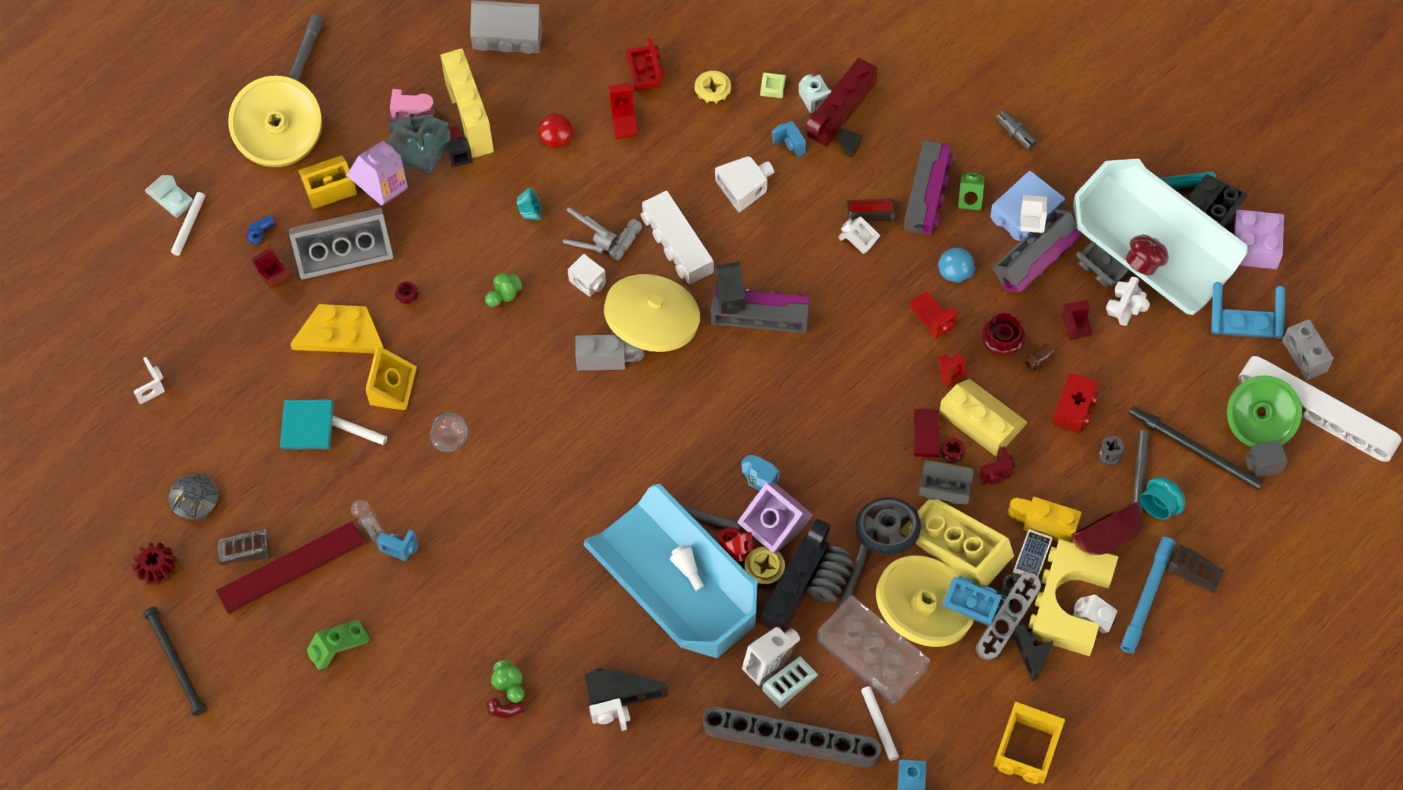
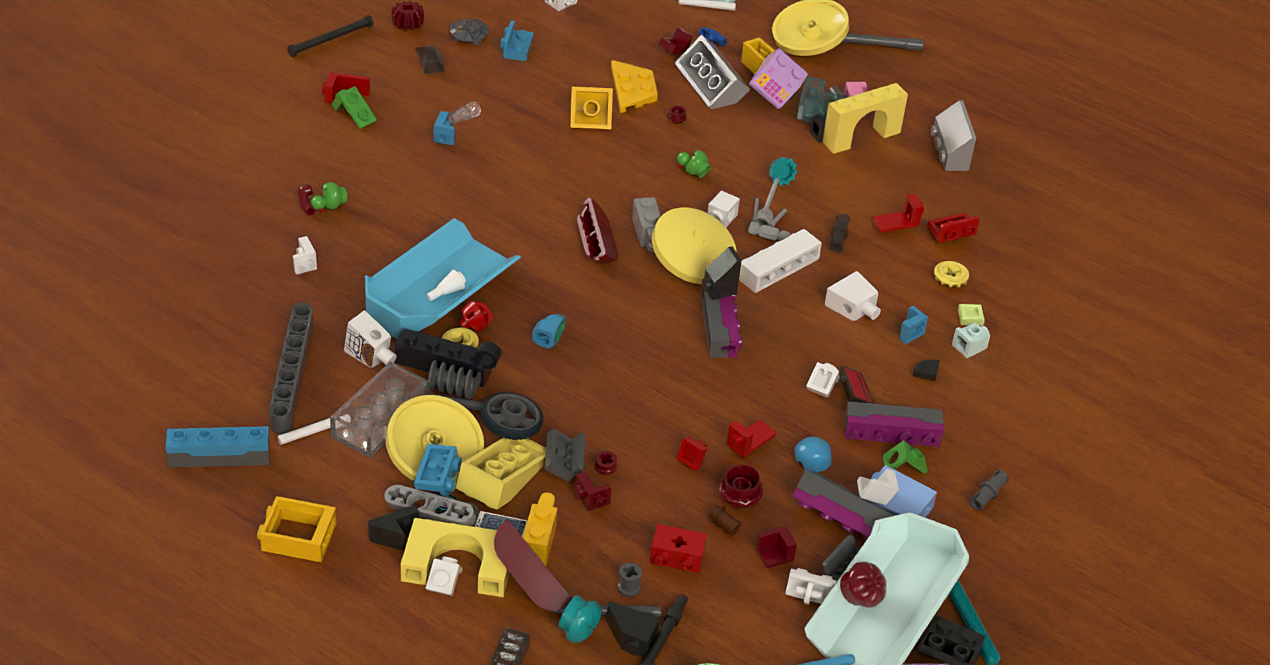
camera: 75 degrees right, 20 degrees down
(233, 444) = (516, 43): none -> dark azure bracket
(290, 567) = (416, 81): dark red tile -> none
(291, 665) = (338, 82): none -> red bracket
(306, 424) = (541, 74): teal tile -> none
(359, 430) = (546, 100): white piece -> none
(448, 432) = (549, 144): clear hair -> none
(555, 131) = (865, 181): red hair -> none
(612, 684) = (328, 258): pearl dark grey slope -> none
(613, 407) = (597, 233): none -> dark red brick
(637, 173) = (839, 233): none -> clear smoke pin
(712, 519) = (502, 303): dark grey bar -> none
(774, 517) = (514, 337): lavender slope -> none
(781, 699) = (336, 354): light aqua slope -> none
(842, 102) = (964, 353): dark red hinge -> none
(926, 433) = (619, 439): dark red slope -> none
(981, 416) = (648, 478): light yellow slope -> none
(1134, 630) = (431, 610): dark azure piece -> none
(1172, 457) = (632, 628): none -> pearl dark grey slope

